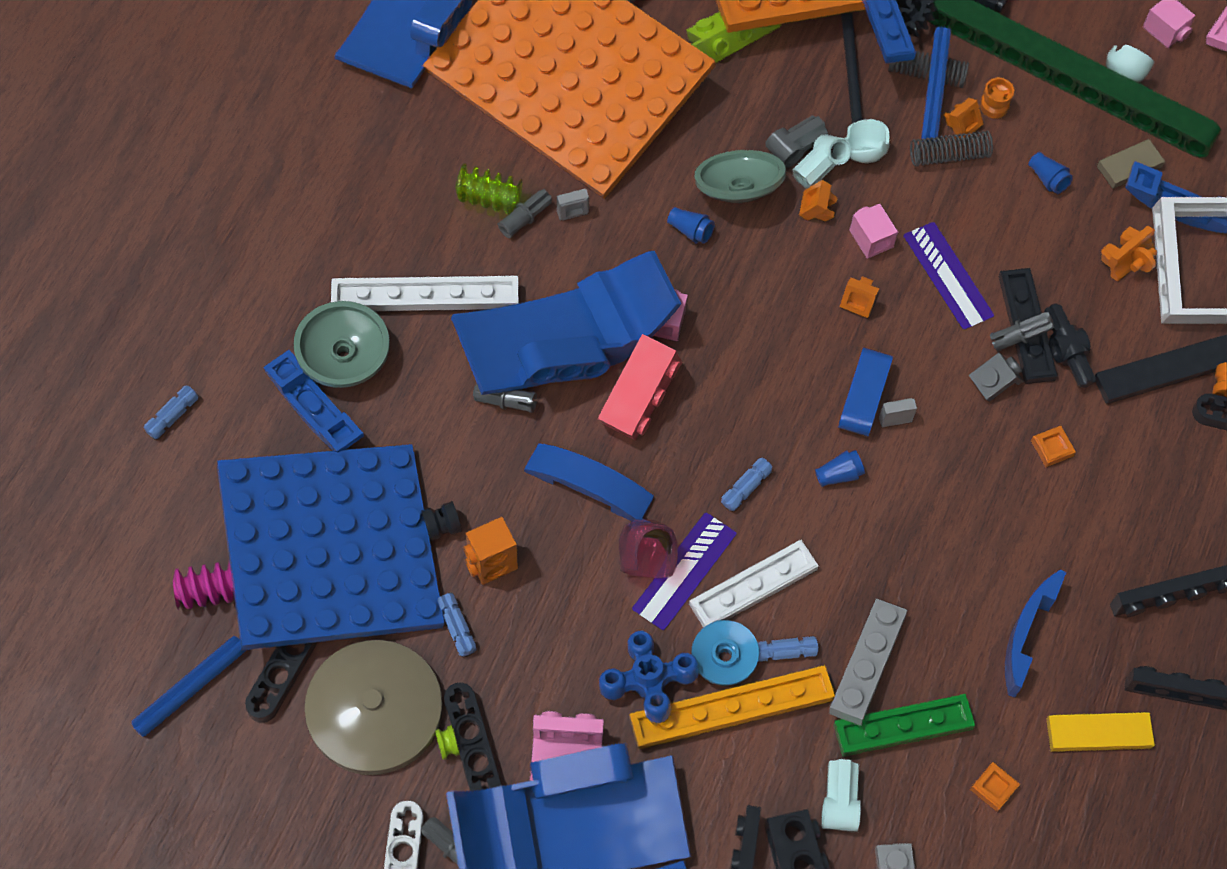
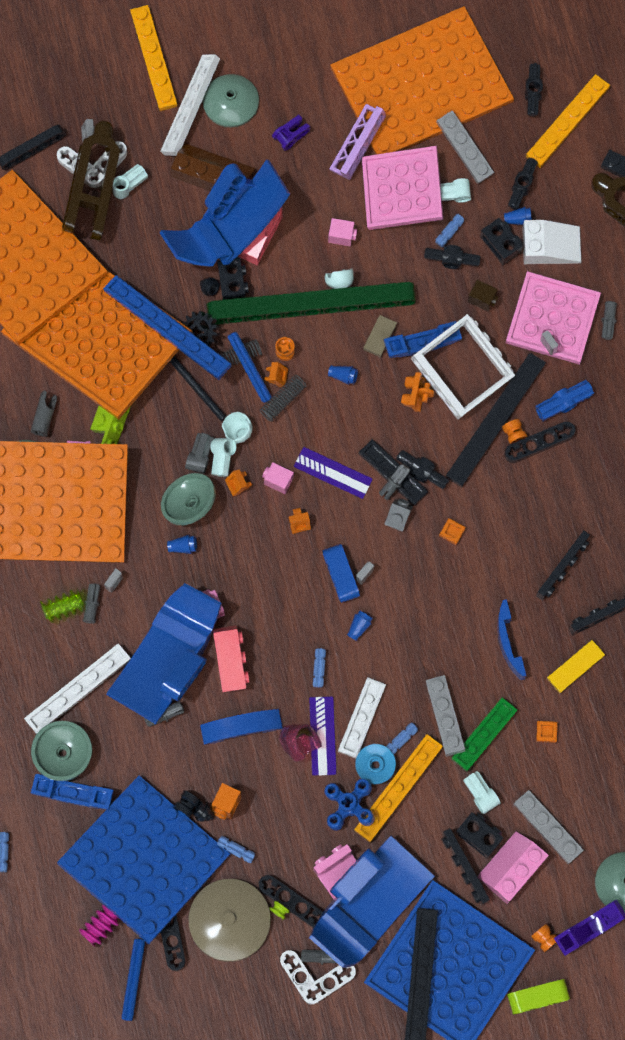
camera: 35 degrees left, 10 degrees up
(452, 548) = (203, 812): none -> black plate

